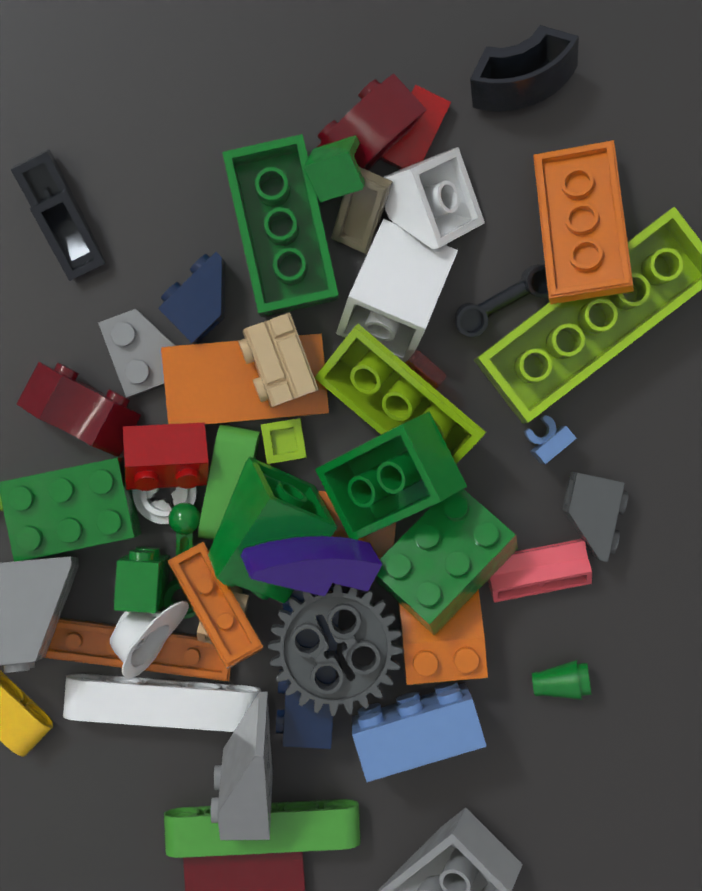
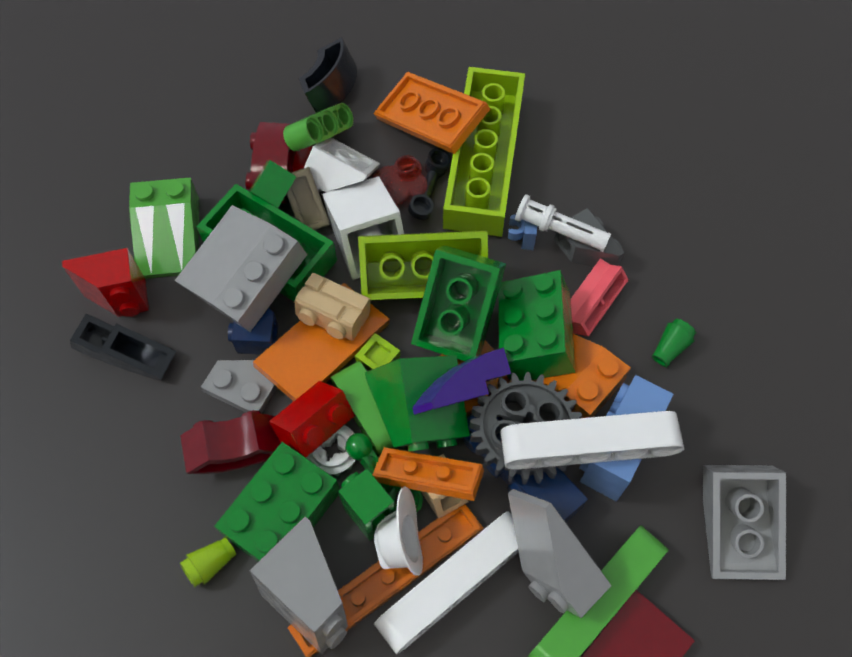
camera: 45 degrees left, 25 degrees down
(95, 139) = (110, 281): none -> red slope
(201, 108) = (164, 225): none -> bright green slope
(222, 244) = (242, 266): none -> light grey slope
(365, 724) = (591, 440): none -> white beam
(449, 135) = (318, 127): none -> bright green beam
(478, 270) = (403, 178): none -> clear red plate
(593, 530) = (547, 218): none -> white pin

